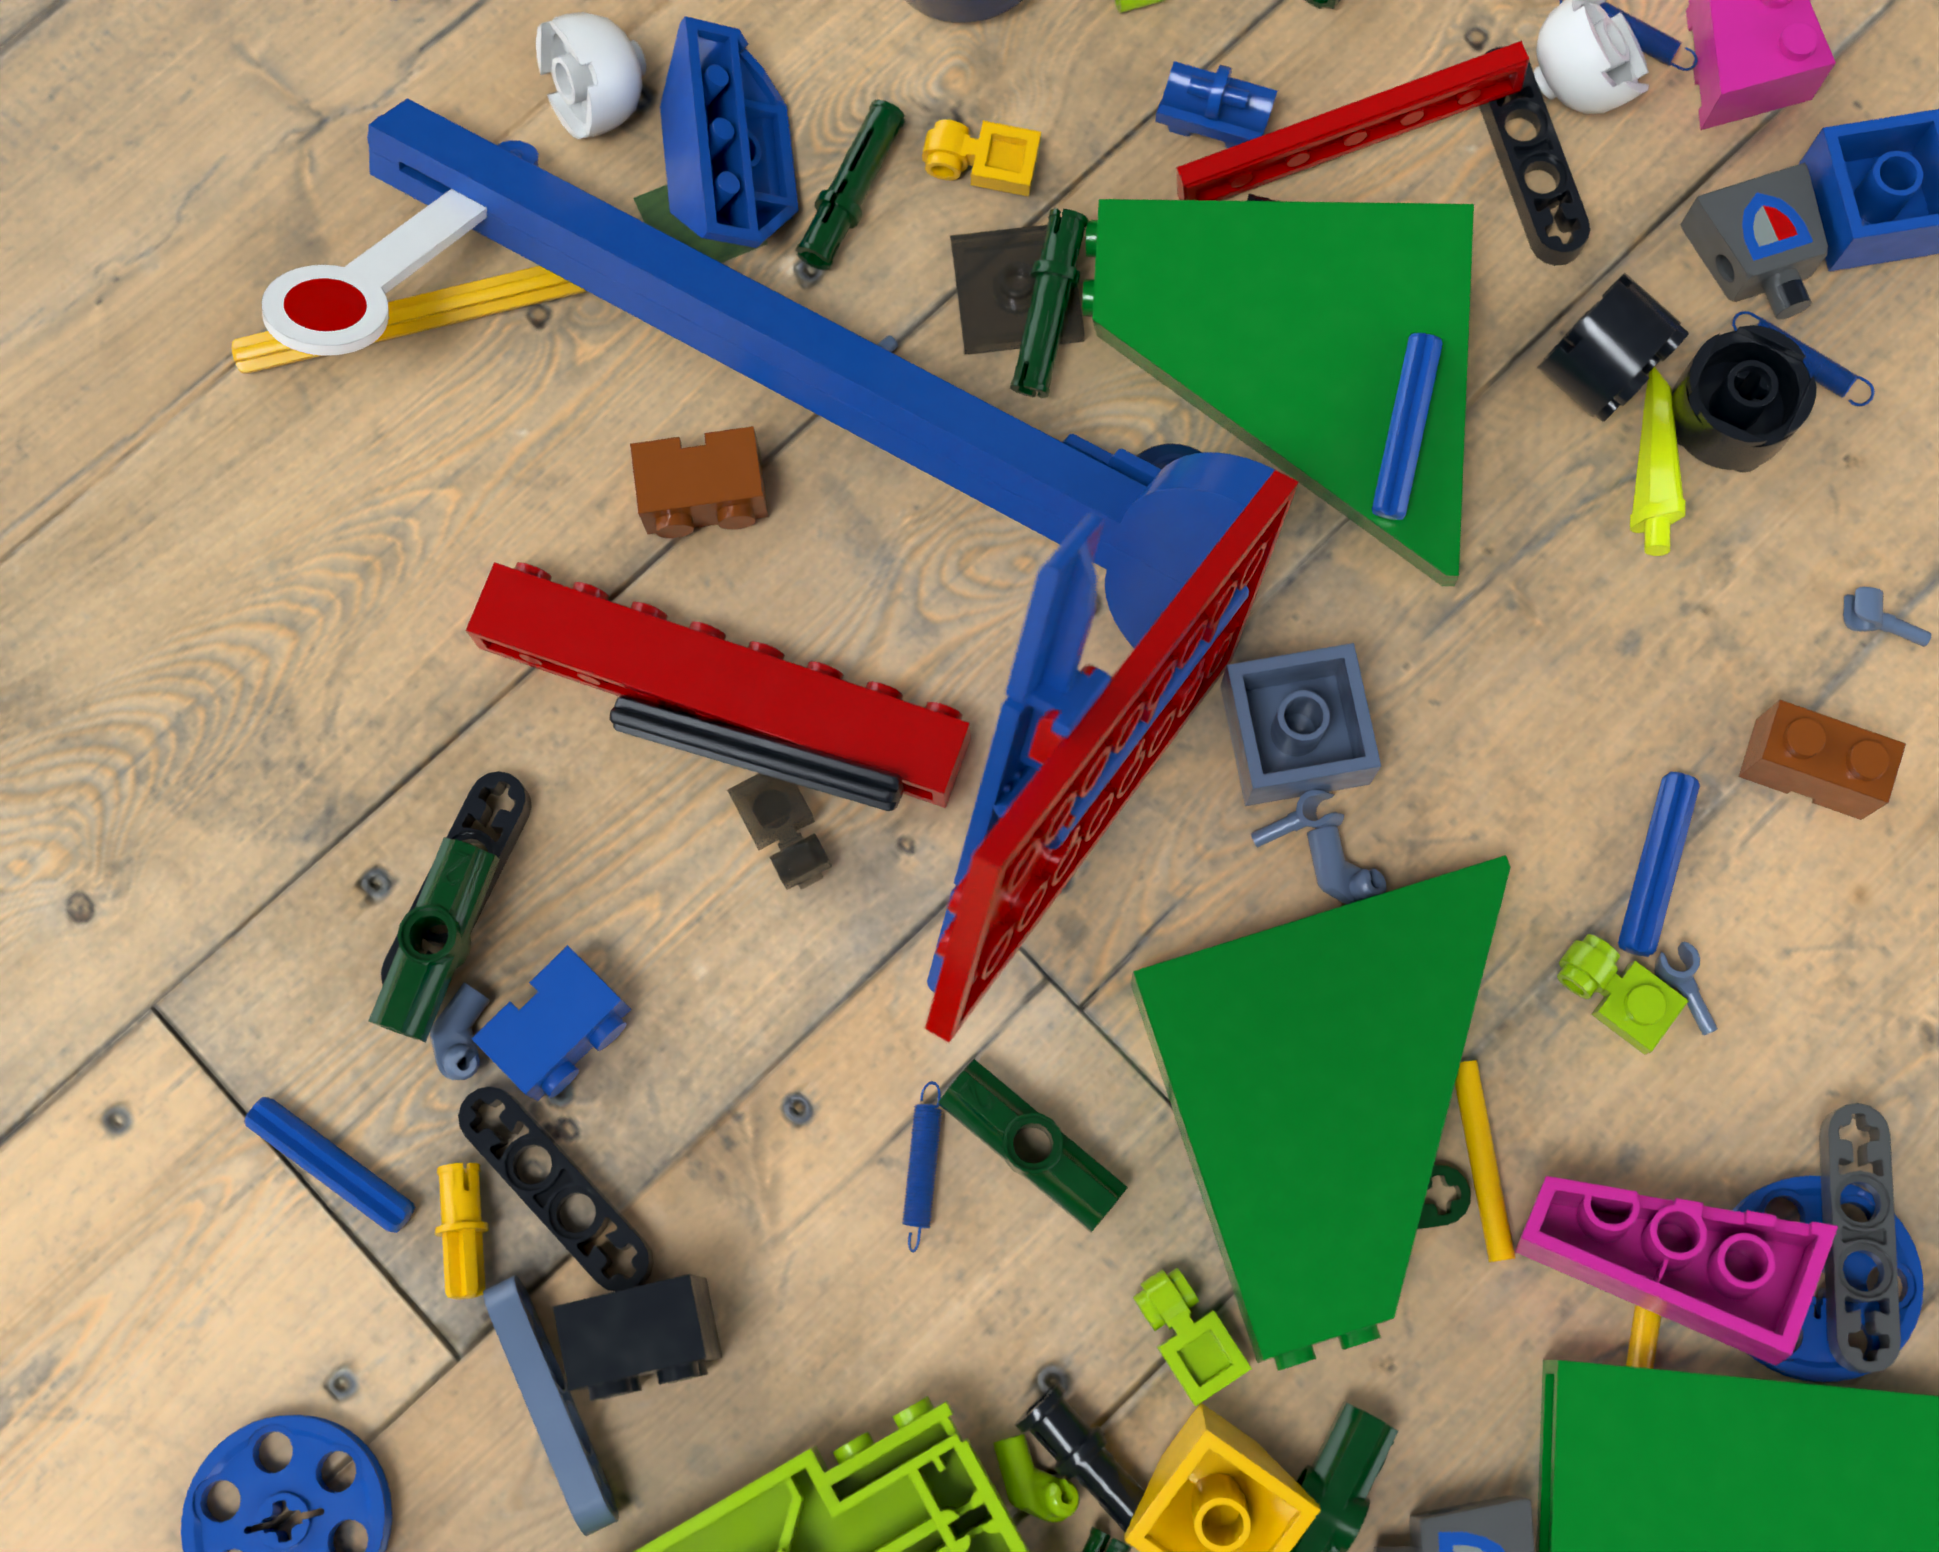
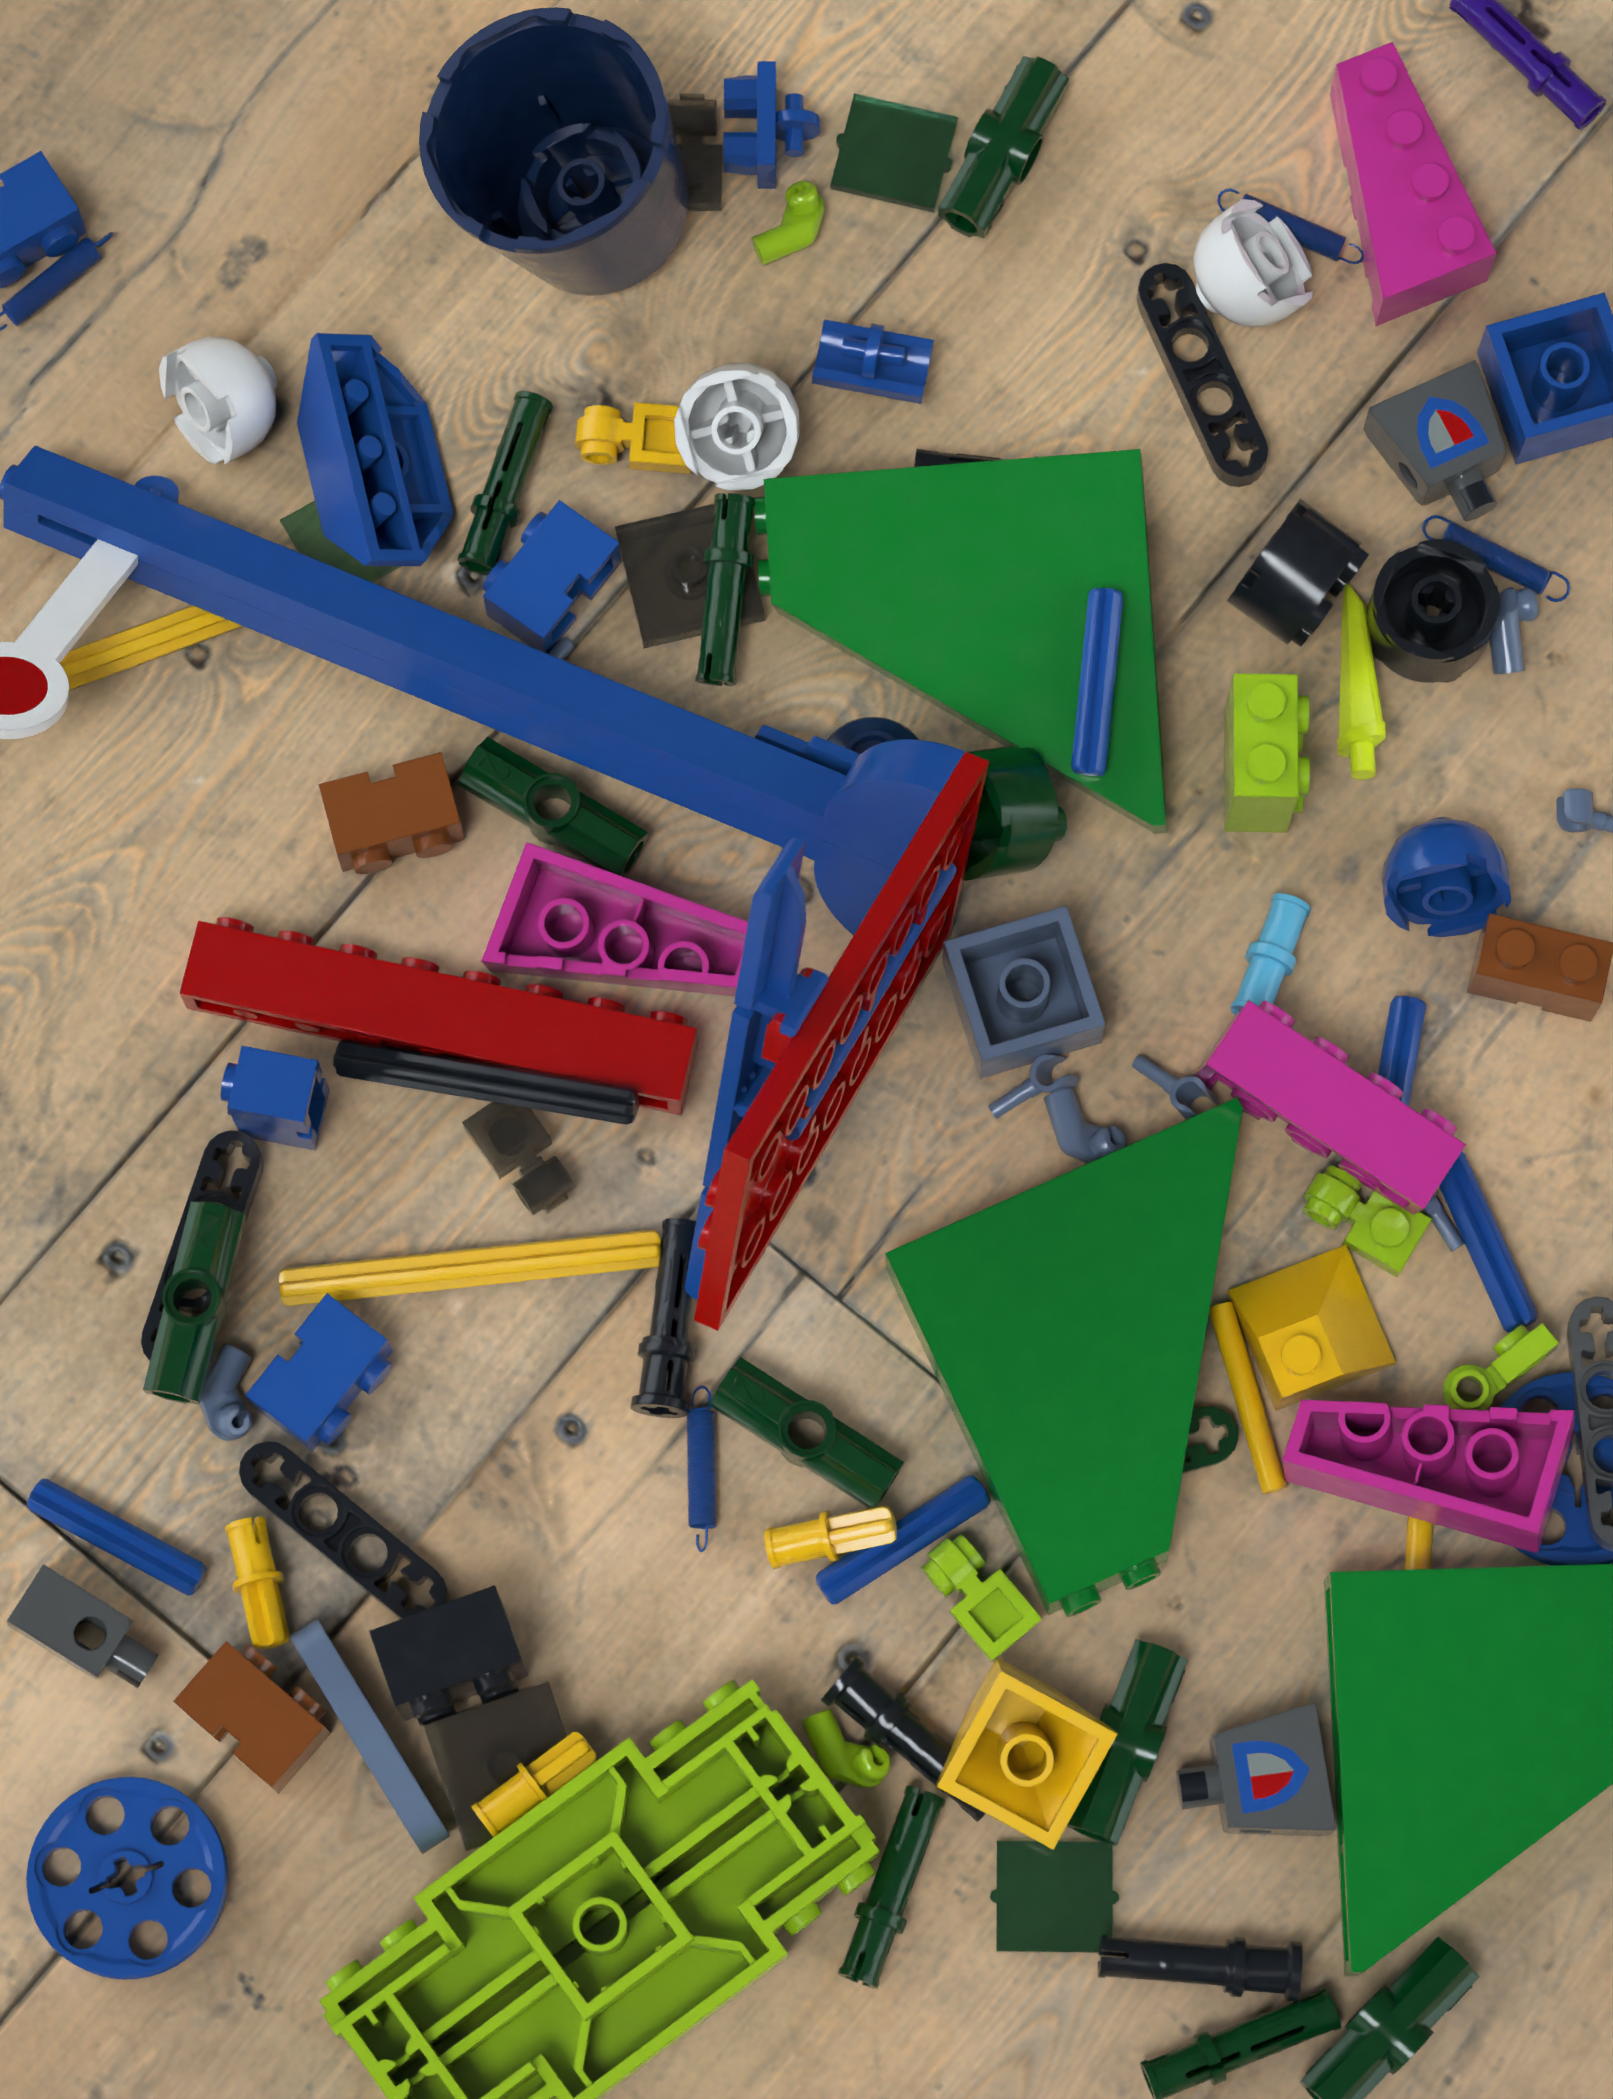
camera: 10 degrees left, 0 degrees up
(242, 1247) = (54, 1610): none -> dark grey torso
(438, 1365) = (240, 1699): none -> dark orange brick
(544, 743) = (276, 1097): none -> blue brick
(681, 1448) = (484, 1744): none -> clear smoke plate
(708, 1481) = (535, 1782): none -> yellow axle
(718, 935) = (470, 1267): none -> yellow axle
(829, 471) = (521, 787): none -> dark green piece
(881, 271) = (555, 565): none -> blue brick
(893, 616) = (608, 929): none -> dark pink wedge
(902, 1040) = (667, 1347): none -> black pin
(1044, 1254) = (830, 1536): none -> yellow axle
(1078, 148) = (737, 426): none -> white cylinder
(1117, 1265) = (913, 1534): none -> blue axle
(1312, 551) = (1015, 815): none -> dark green brick
(1354, 126) = (1013, 370): red tile -> none
(1445, 841) = (1181, 1091): none -> sand blue hand
(1547, 720) = (1272, 954): none -> medium azure pin
(1553, 1096) = (1311, 1327): none -> yellow slope
(1563, 515) = (1261, 749): none -> lime brick
(1603, 875) = (1332, 1105): none -> dark pink wedge
(1734, 660) = (1445, 877): none -> blue cylinder
(1740, 1031) = (1487, 1246): none -> blue axle
(1767, 1153) = (1517, 1356): none -> lime plate
(1808, 440) = (1506, 634): none -> sand blue arm

